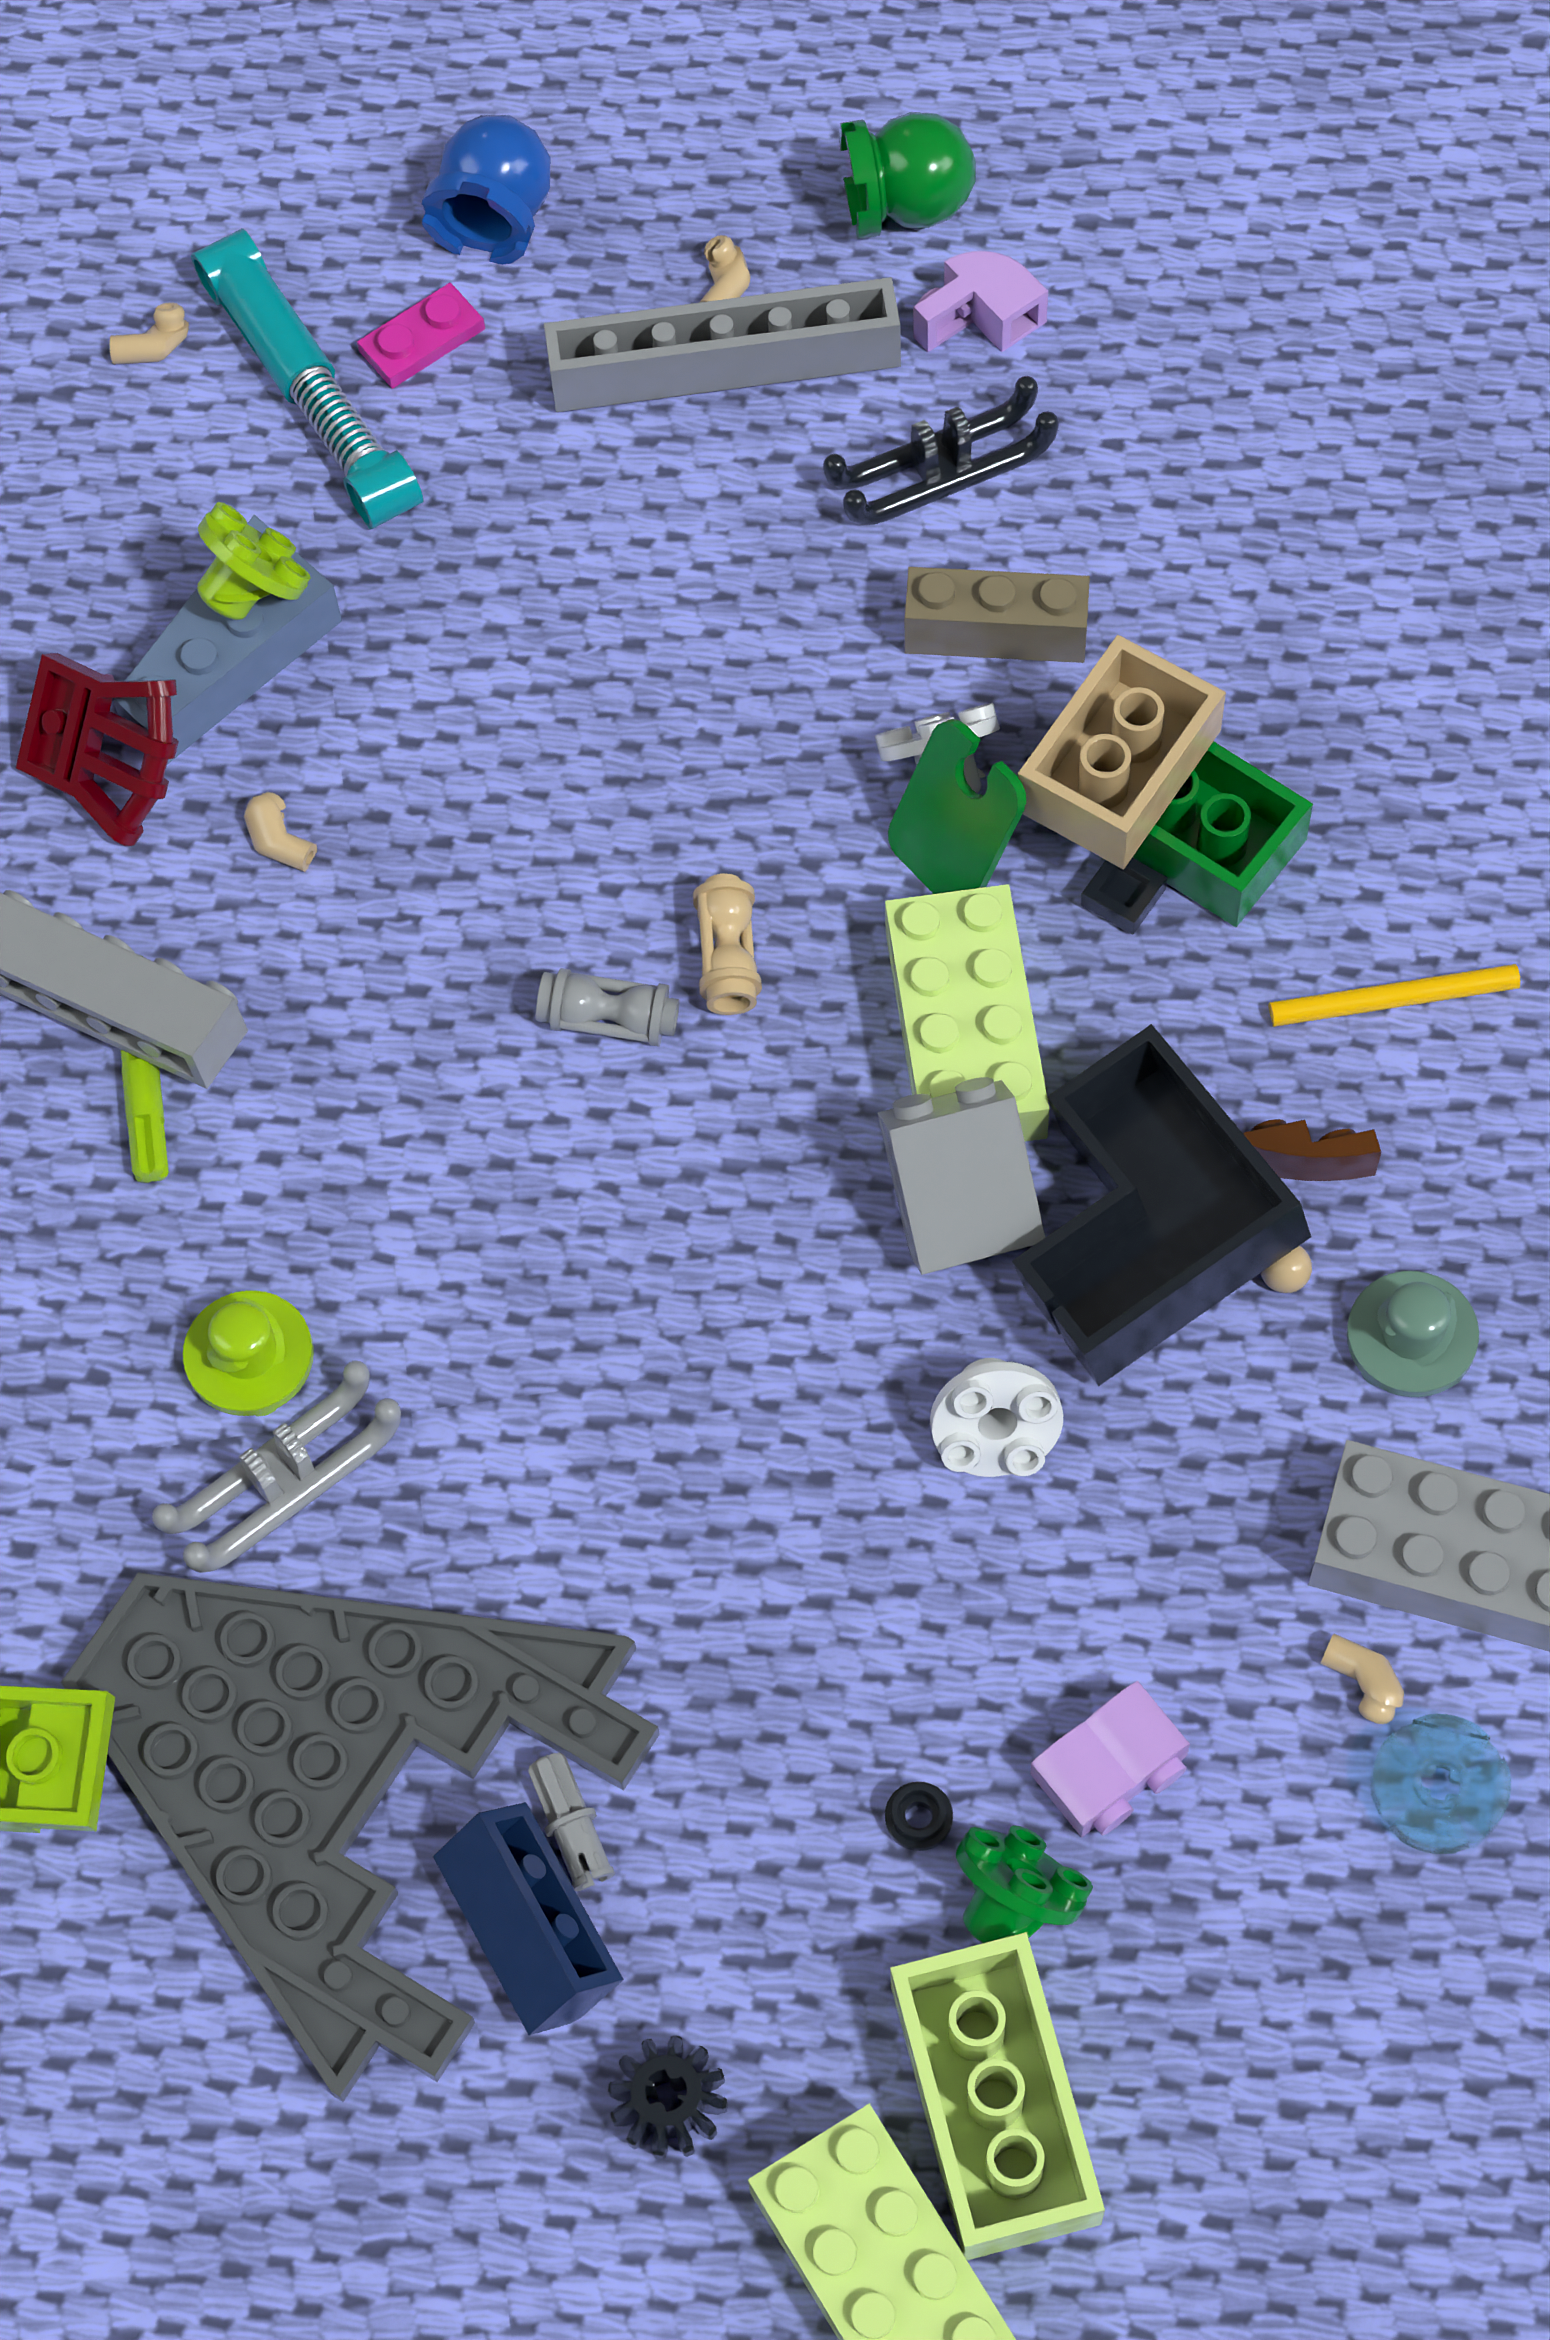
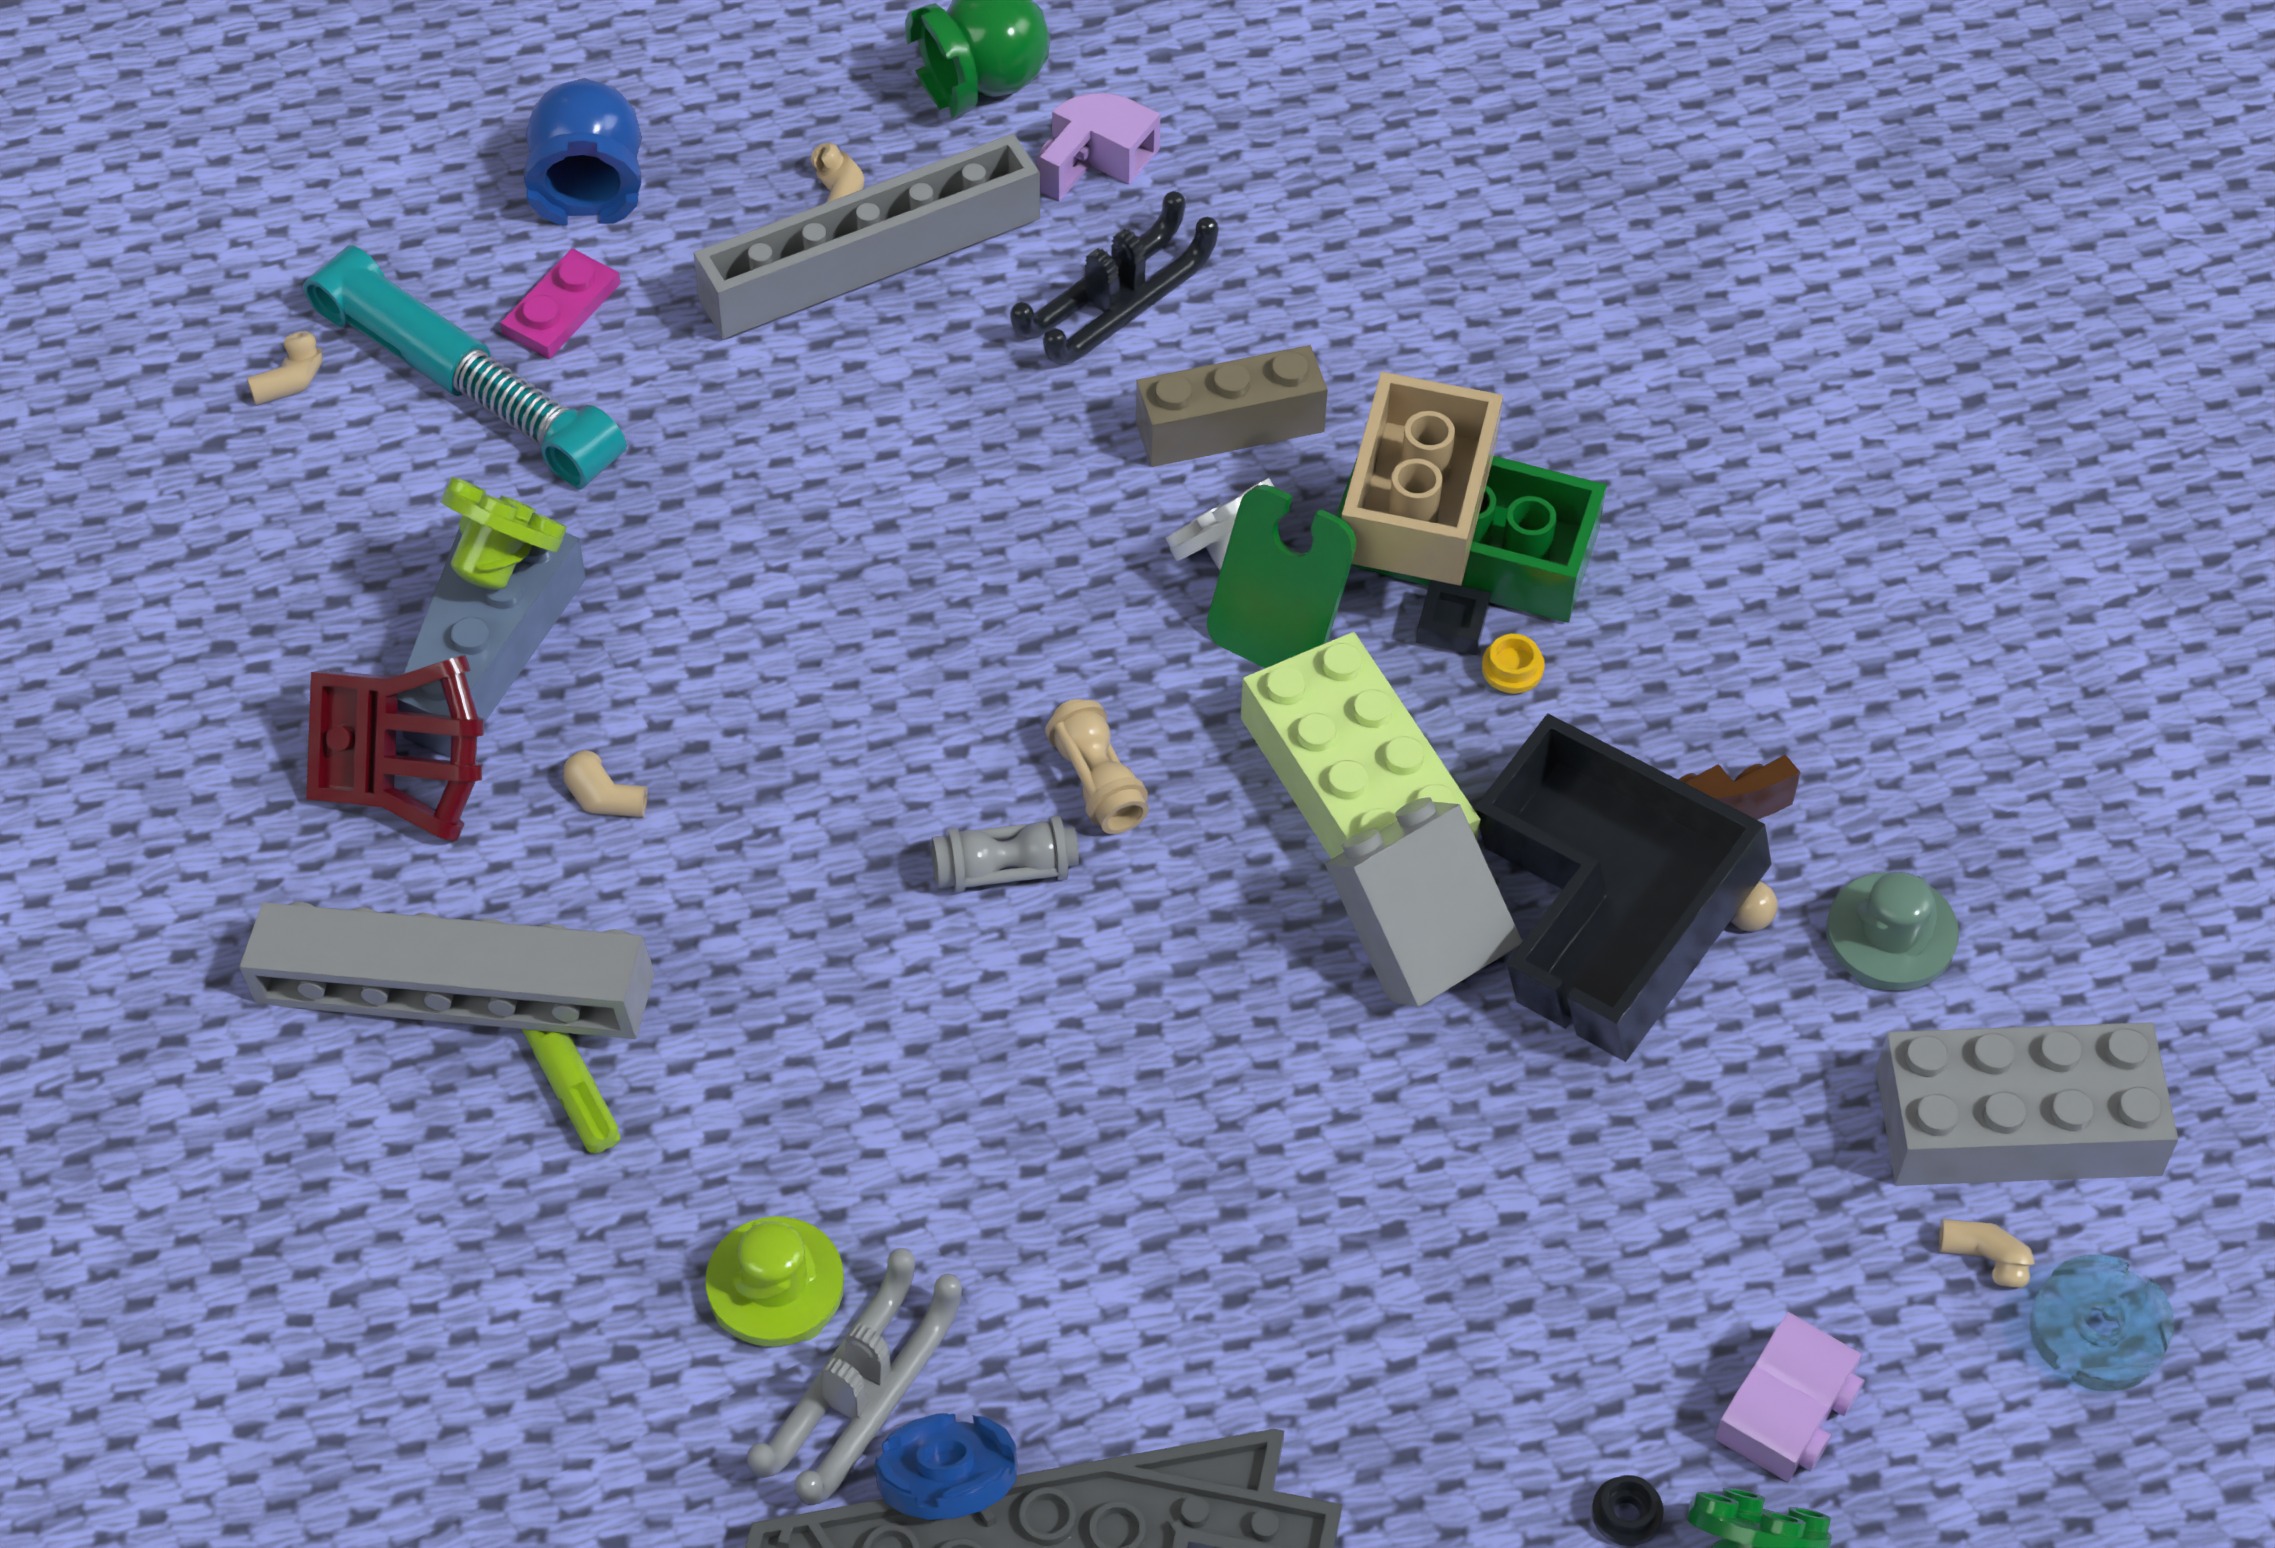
camera: 25 degrees left, 10 degrees down
(323, 1576) = (946, 1466): none -> blue tile
(996, 1419) = (1549, 1115): white plate -> none
(1162, 955) = (1513, 664): none -> yellow plate
(1394, 995) = (1739, 642): yellow bar -> none

